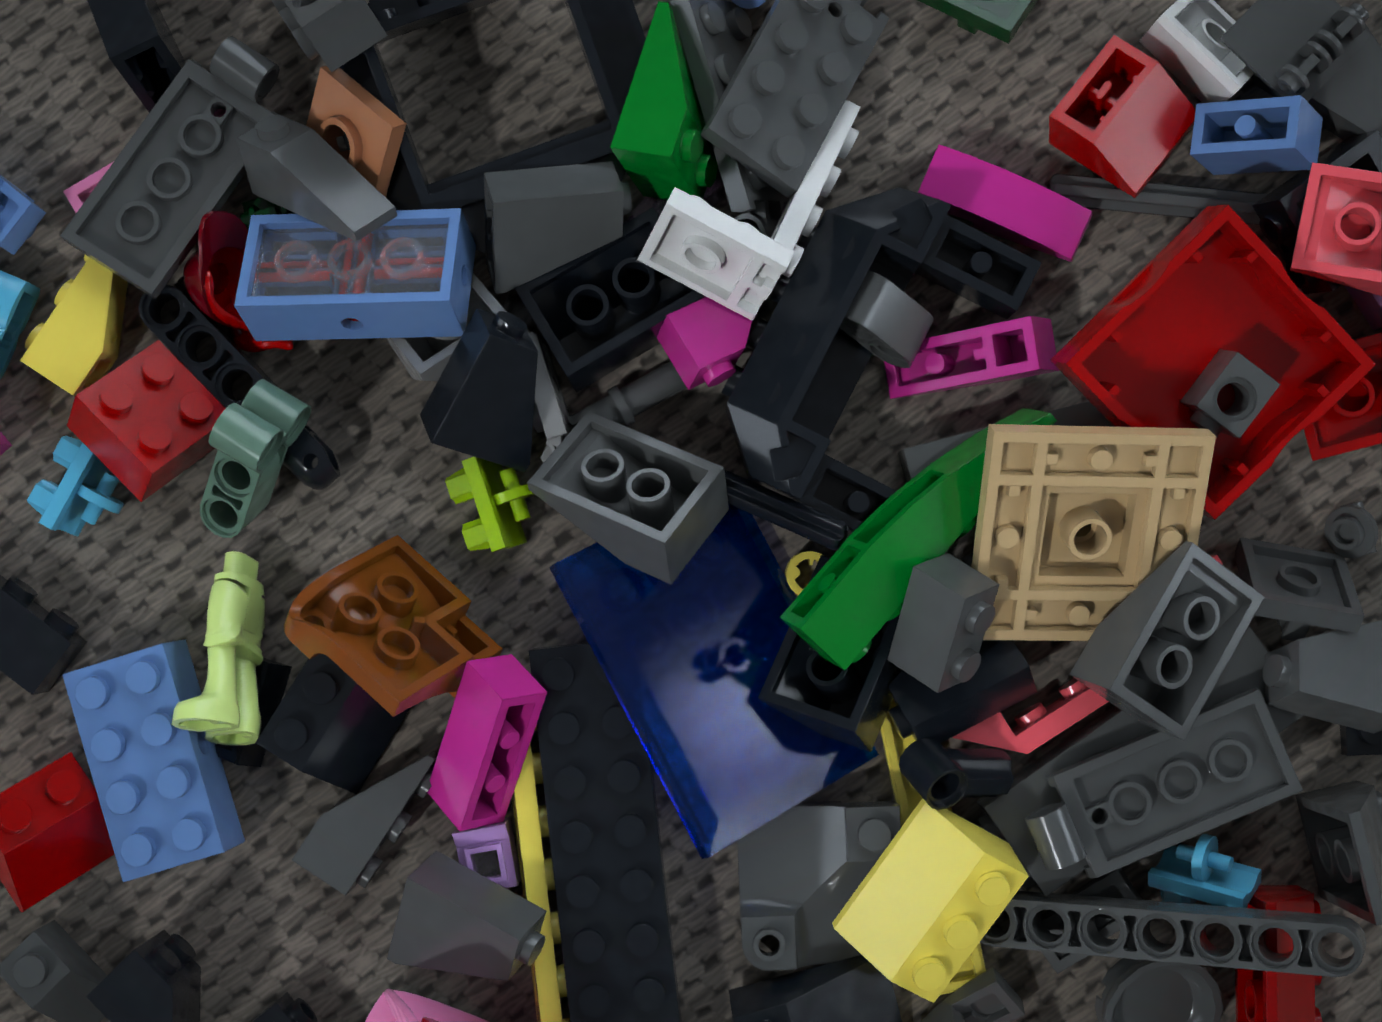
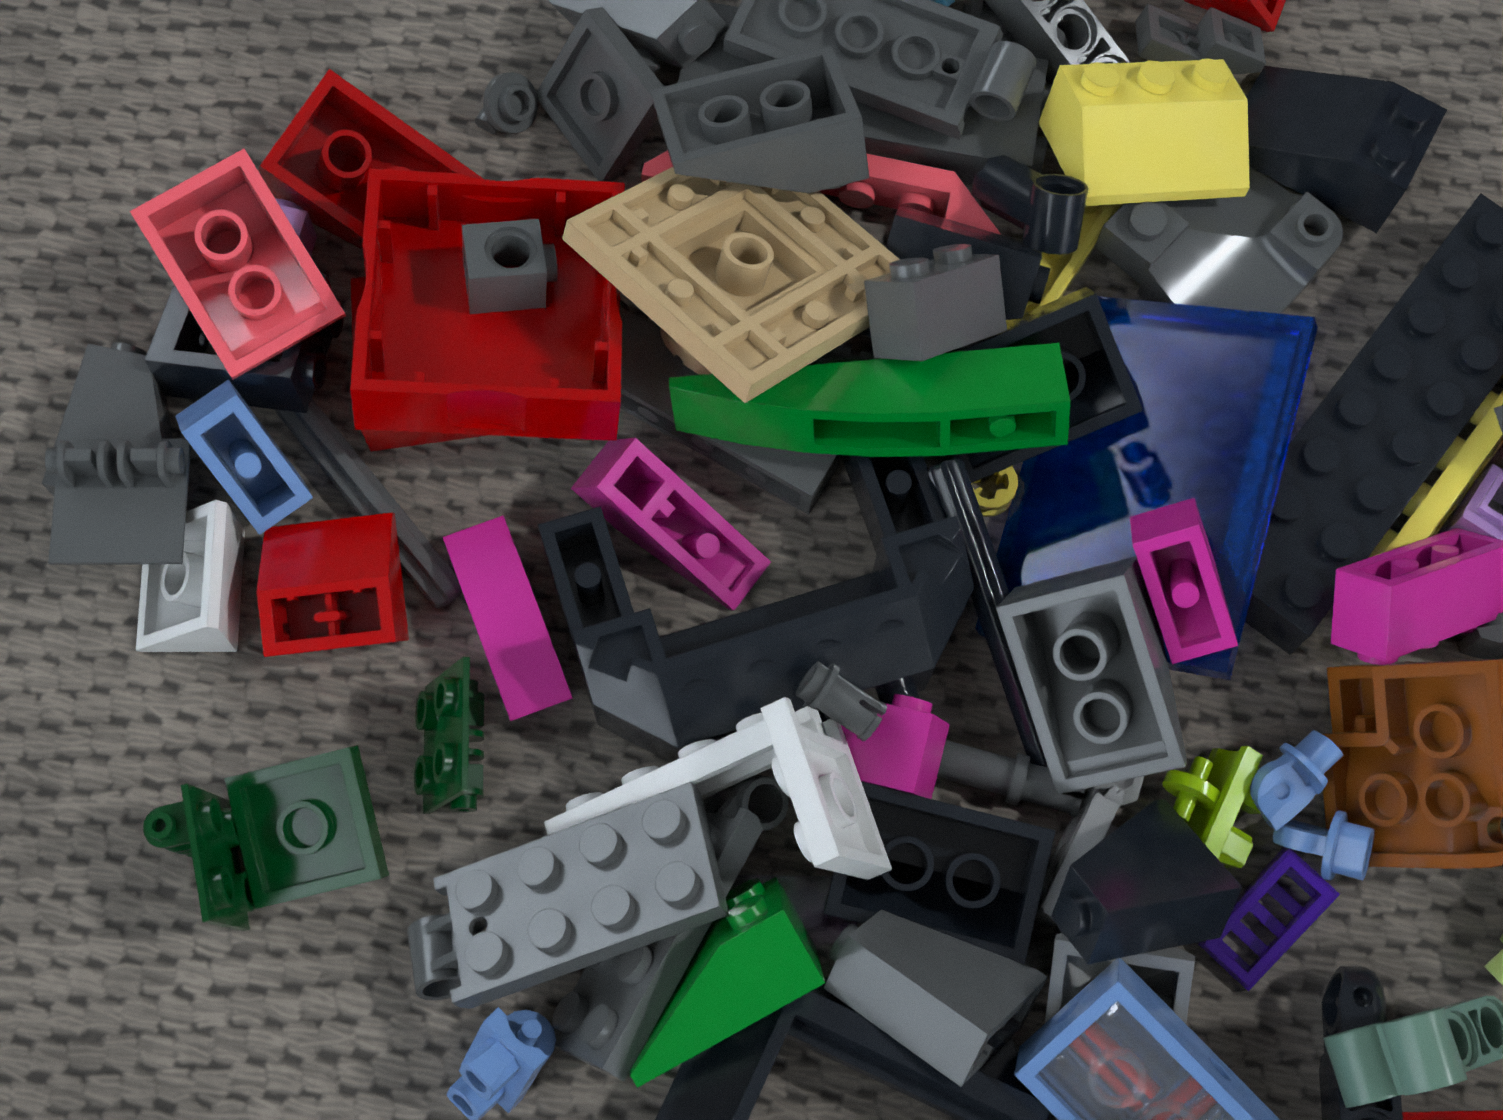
camera: 140 degrees left, 15 degrees down
(404, 513) = (1321, 895): none -> dark purple slope
(405, 541) = (1344, 845): none -> medium blue piece
(460, 555) = (1292, 780): none -> medium blue piece
(633, 593) = (1182, 580): none -> dark pink slope
(760, 321) = (841, 700): none -> dark grey pin
(887, 321) = (714, 603): dark grey beam -> none
(945, 79) = (445, 714): none -> dark green hinge

